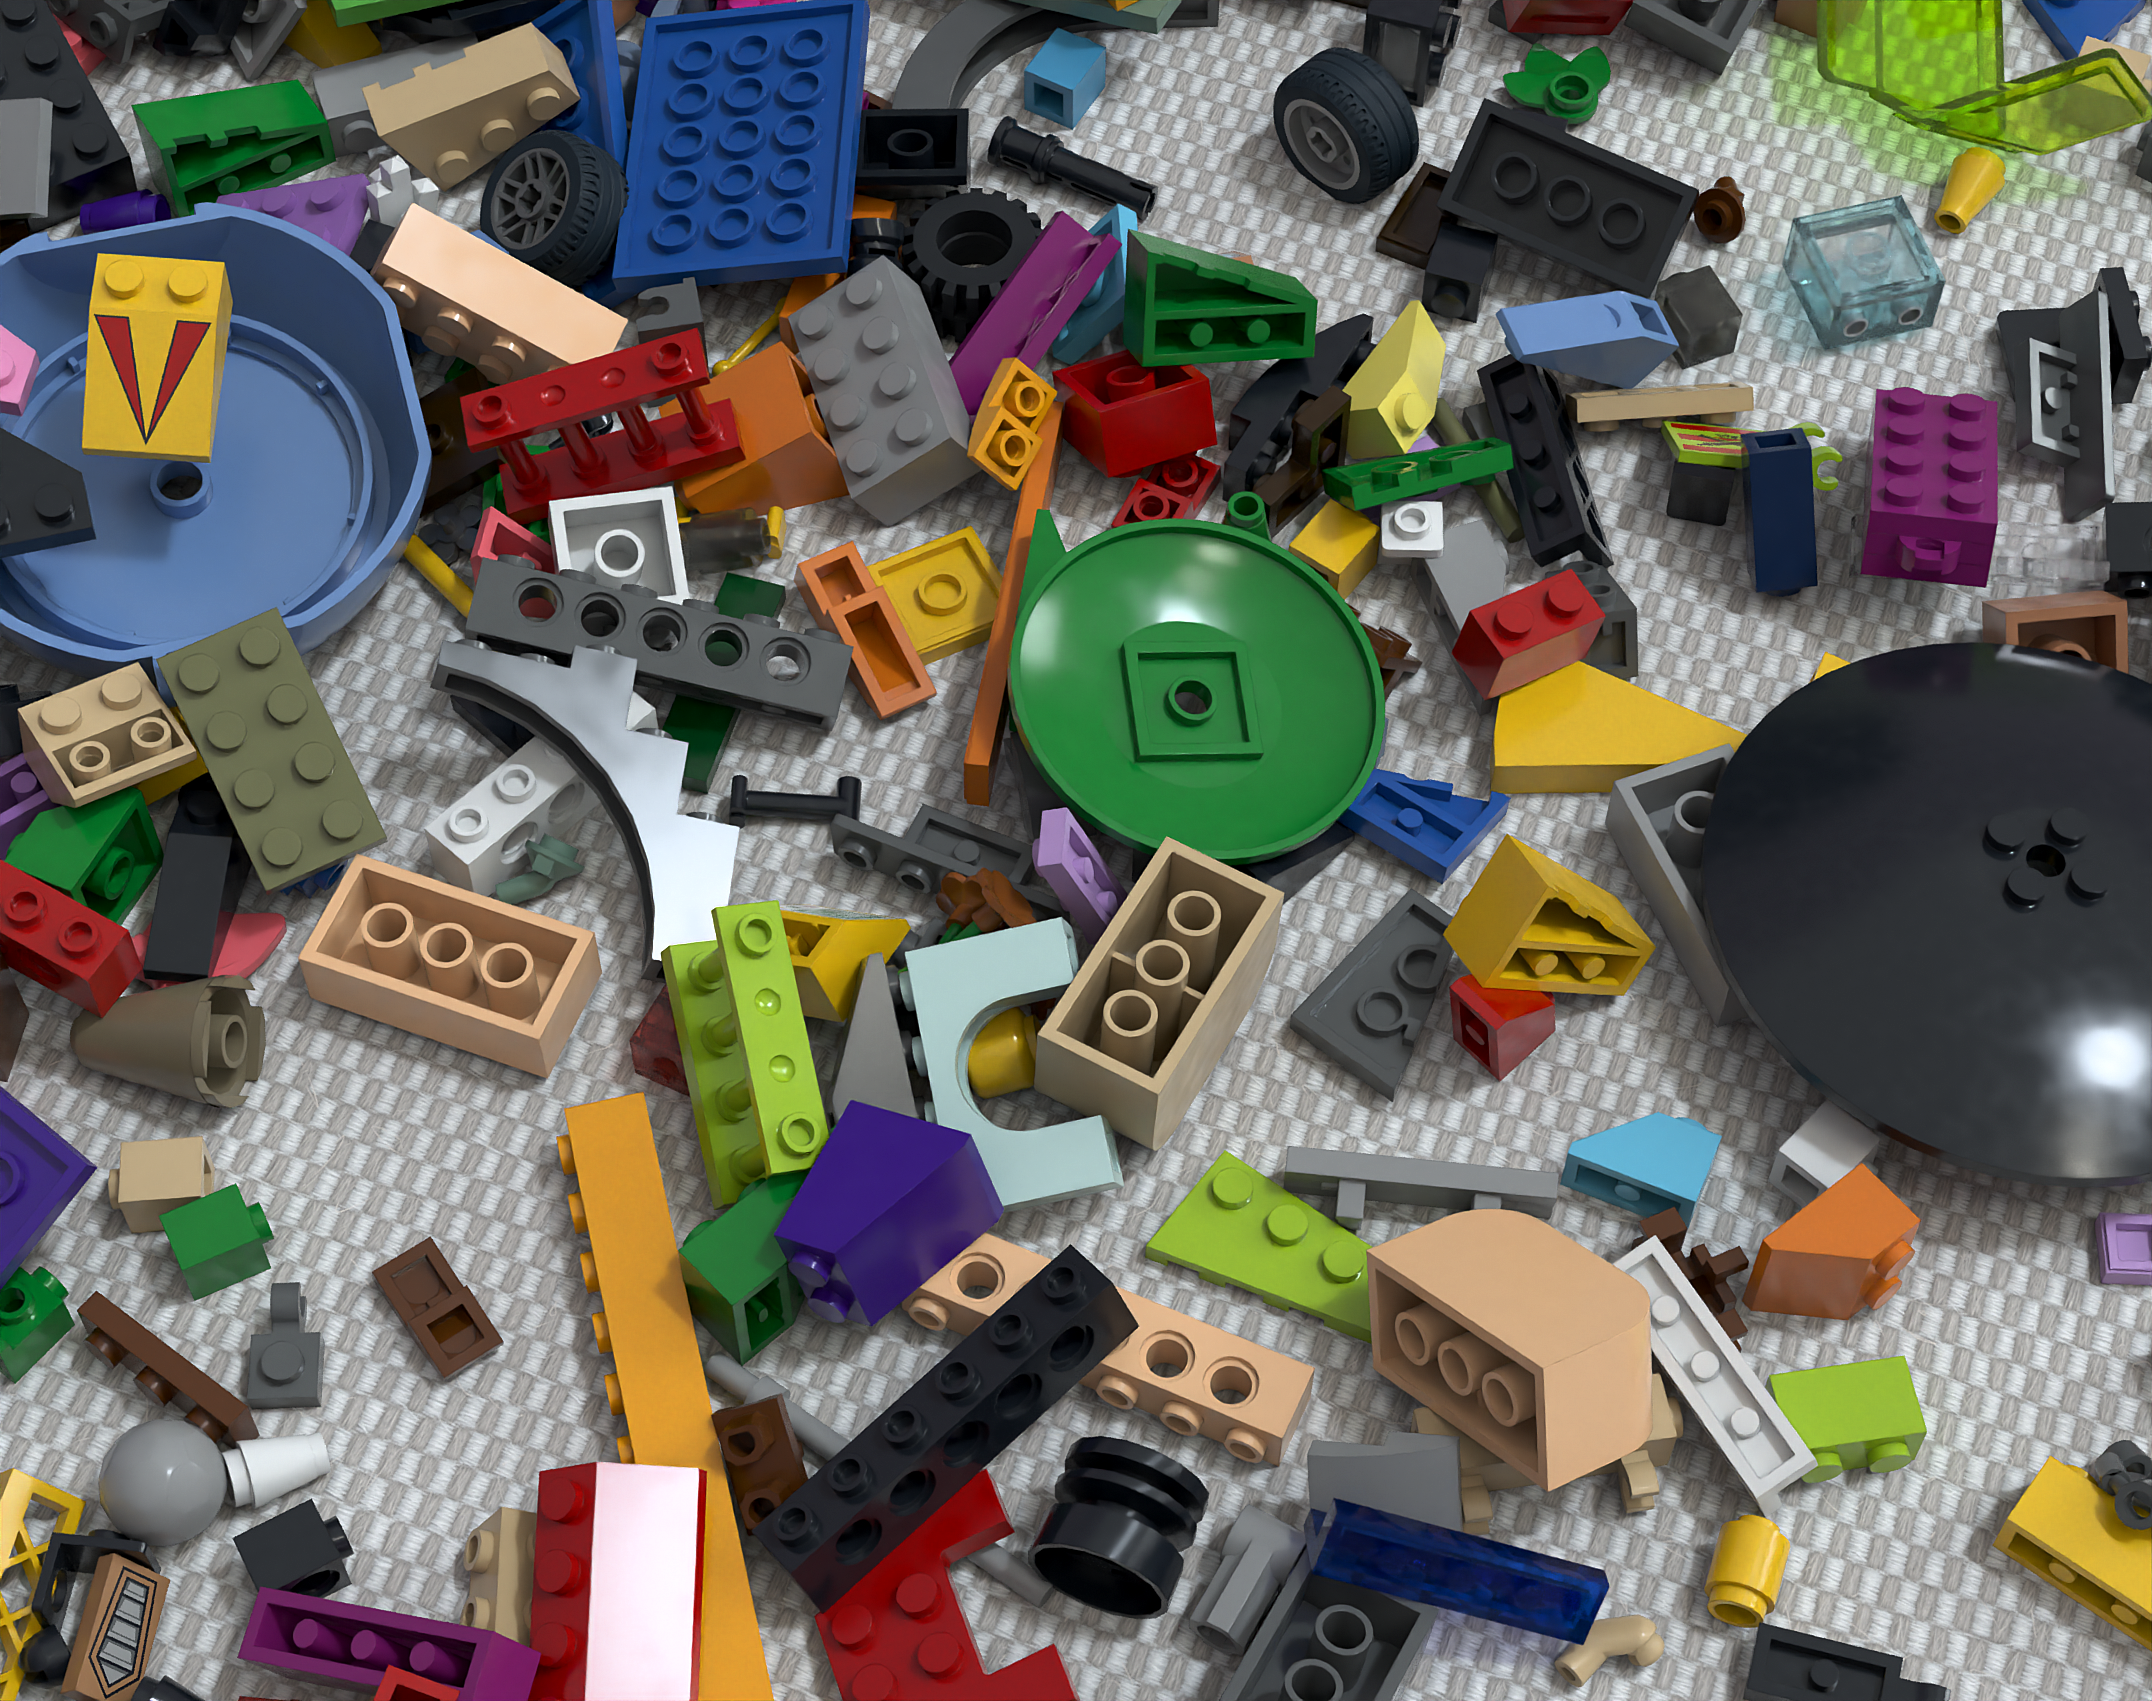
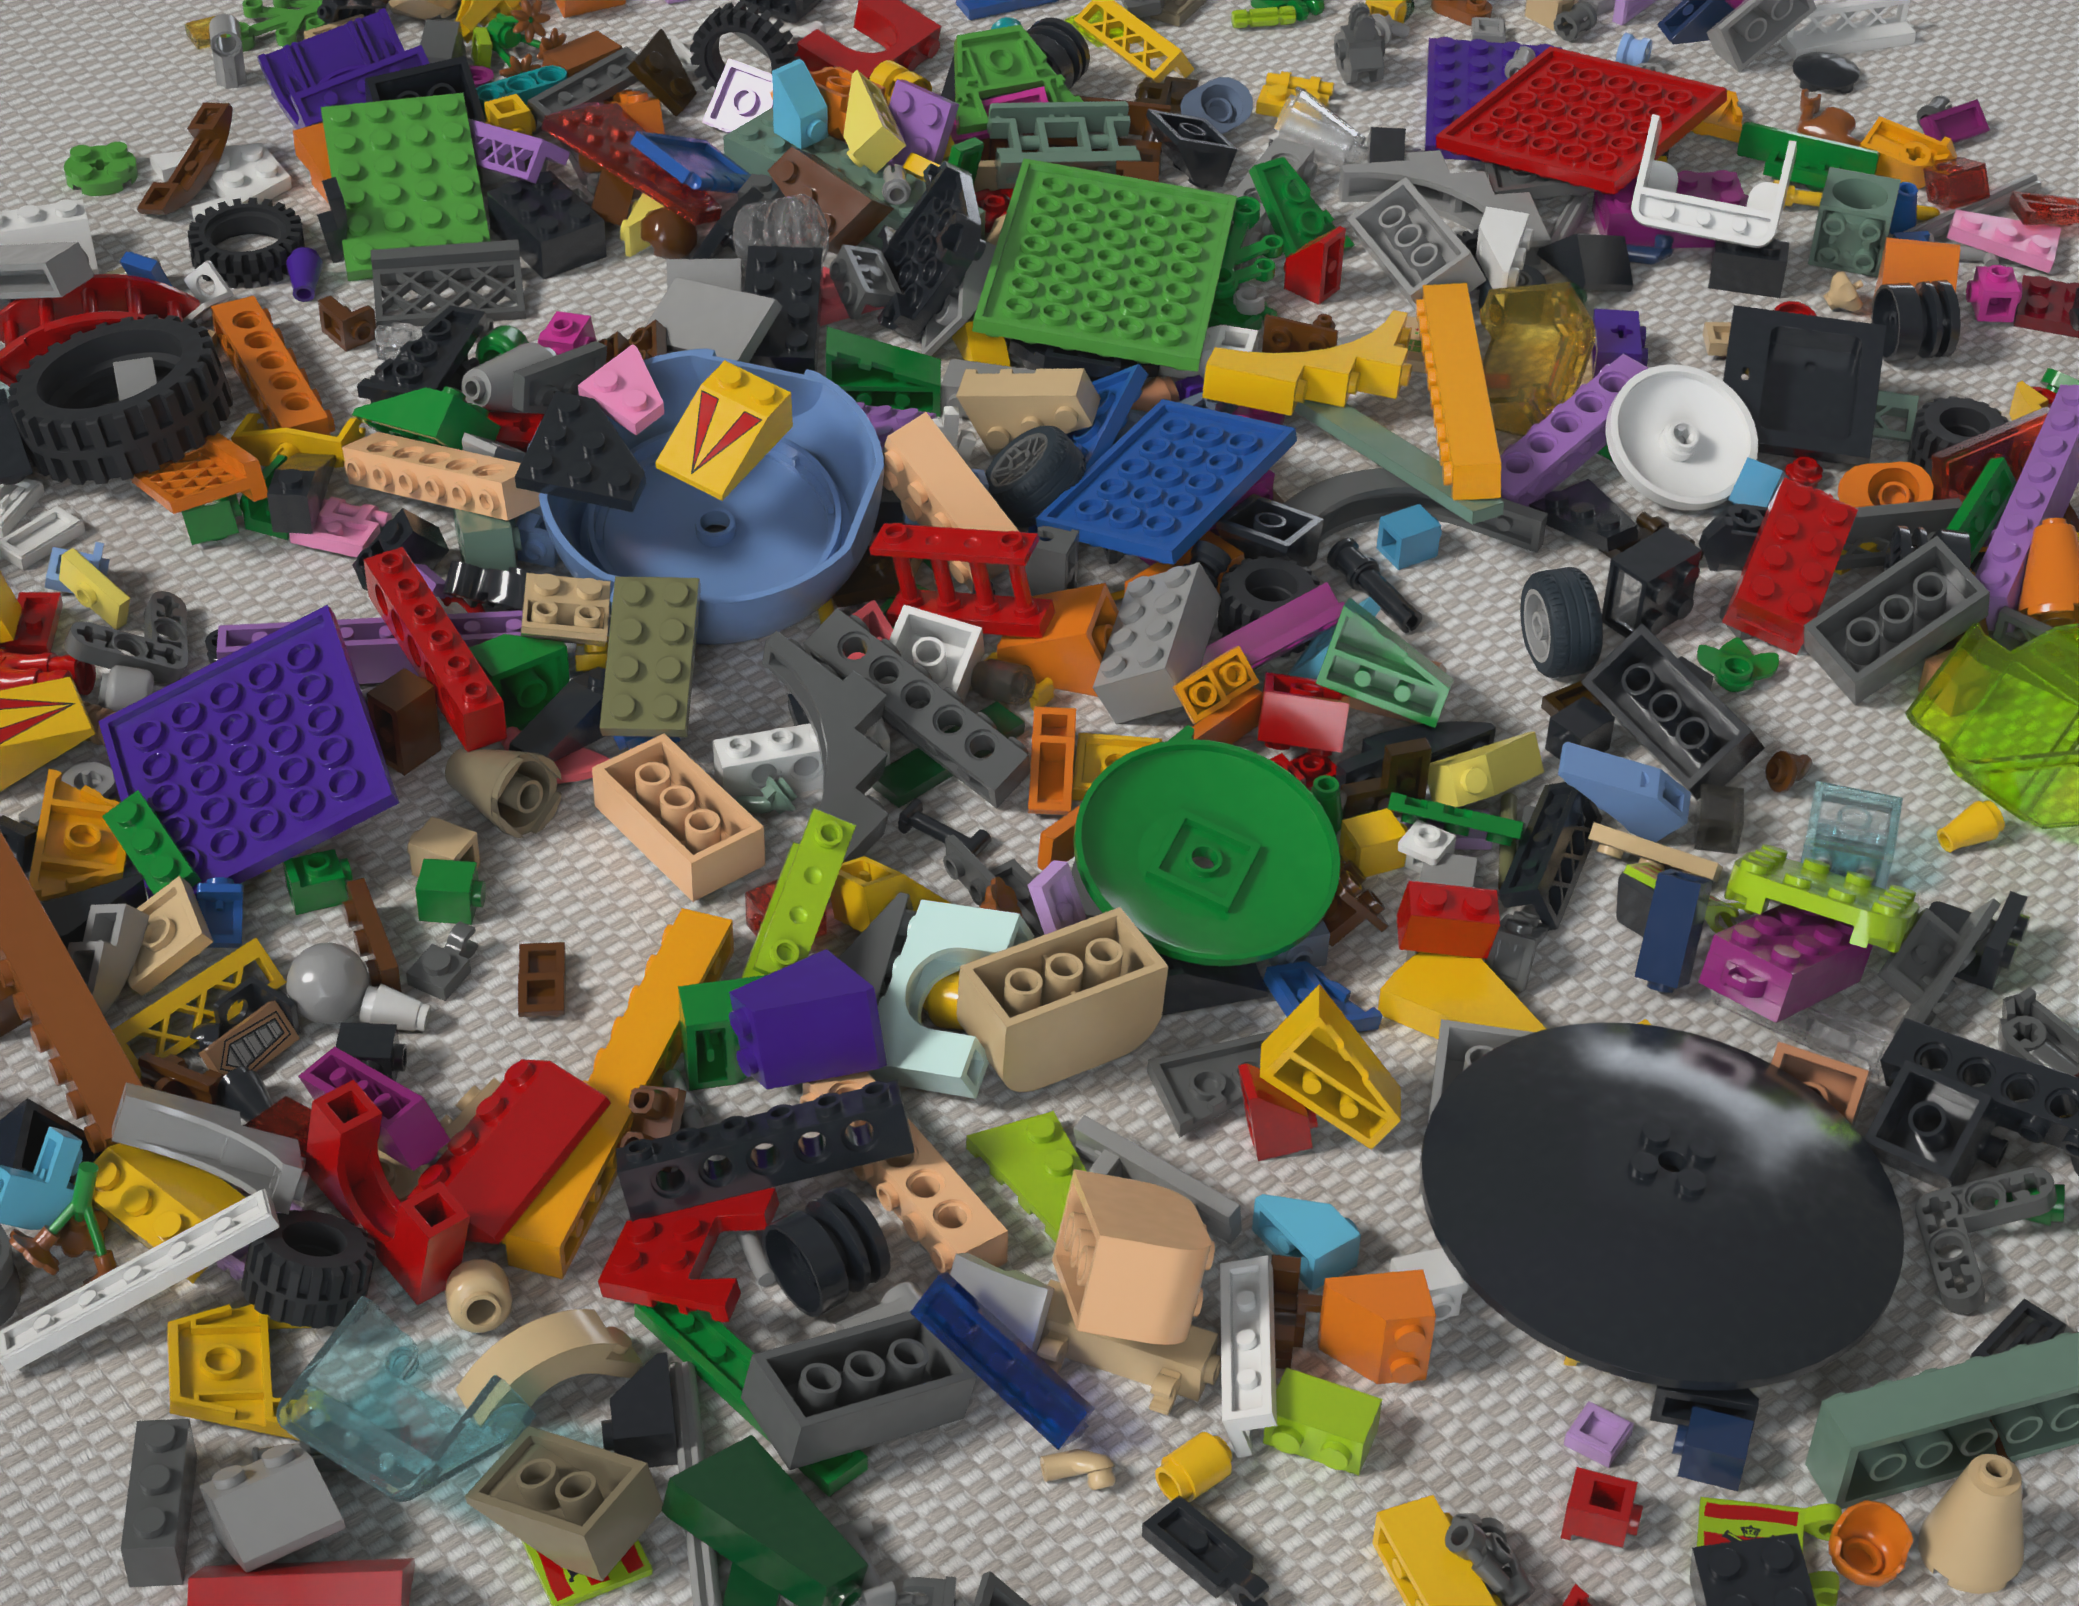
camera: 30 degrees right, 15 degrees down
(1916, 377) = (1877, 914): none -> lime plate

